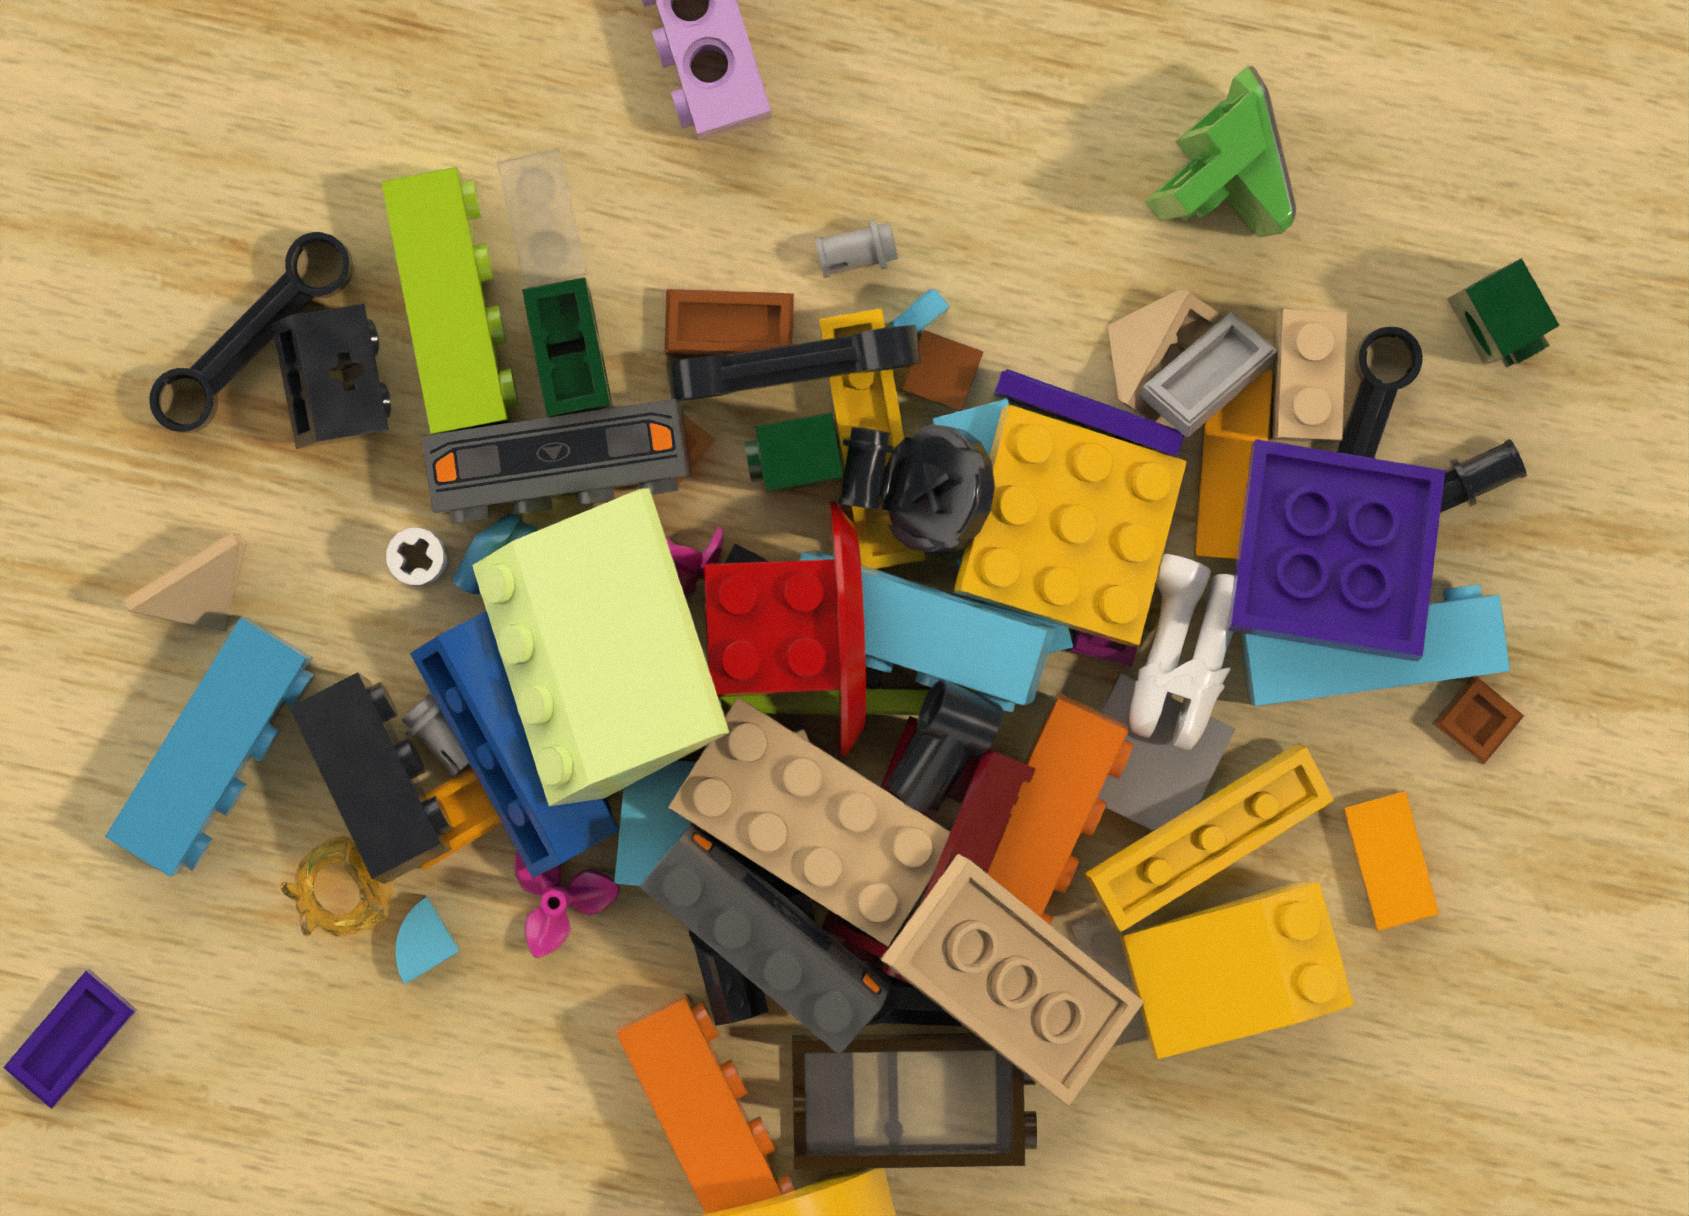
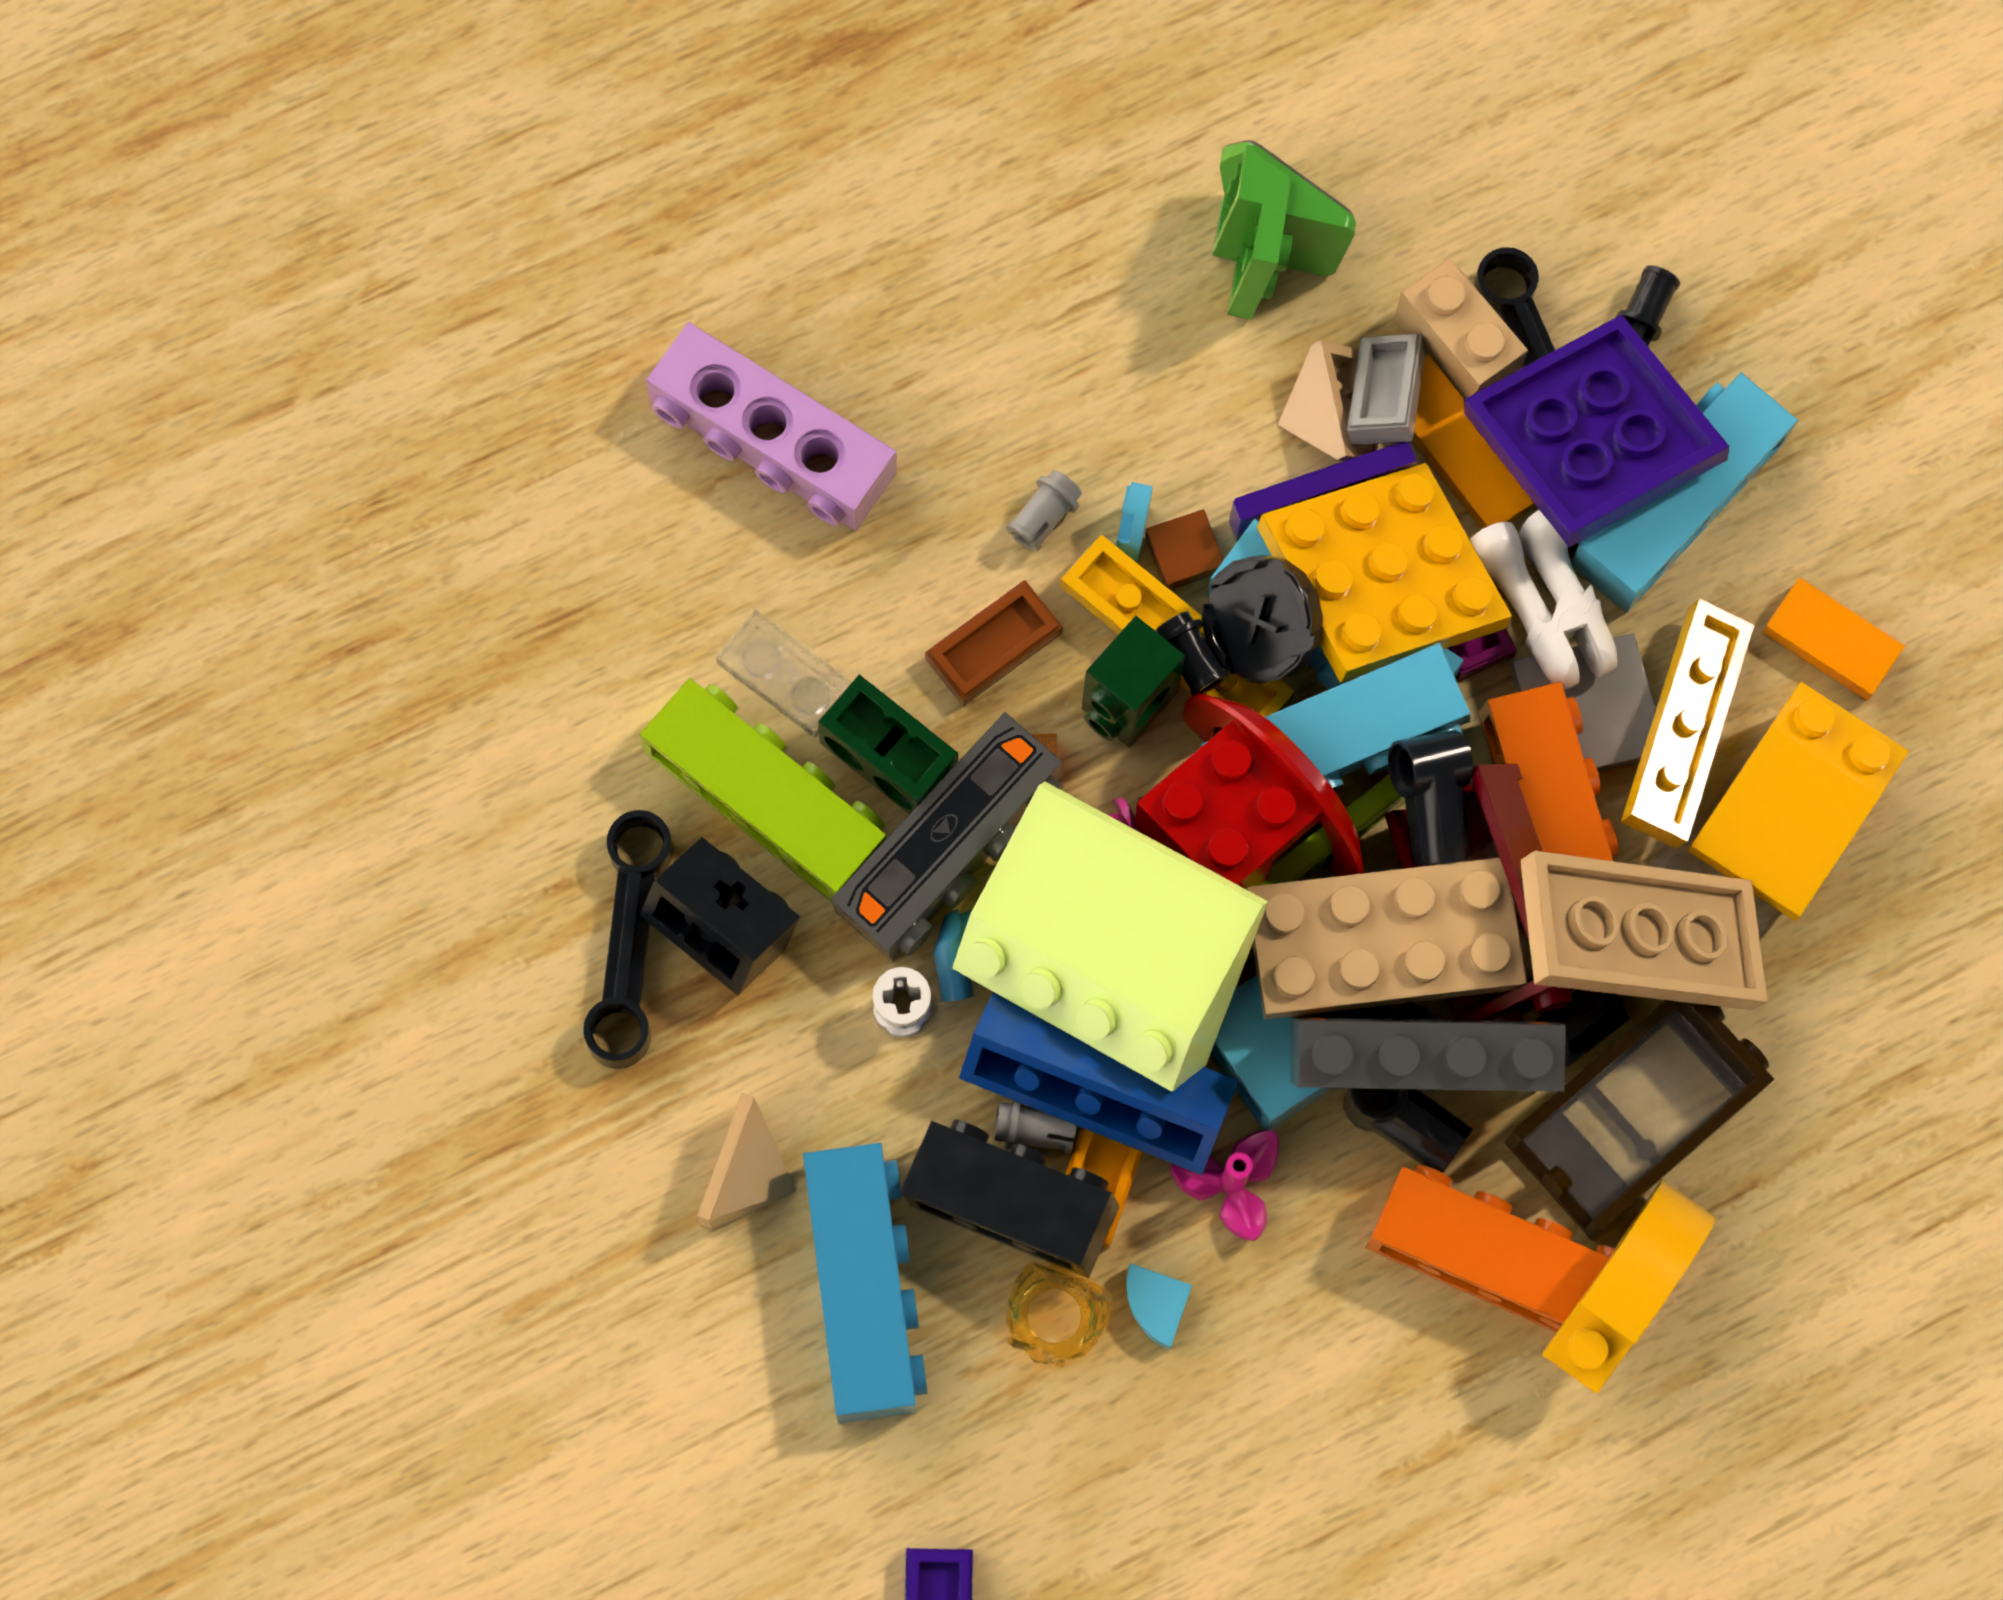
camera: 45 degrees left, 15 degrees down
(794, 363) = (1119, 567): black piece -> none
(1478, 719) = (1803, 487): dark orange tile -> none
(1505, 315) = (1564, 174): dark green brick -> none

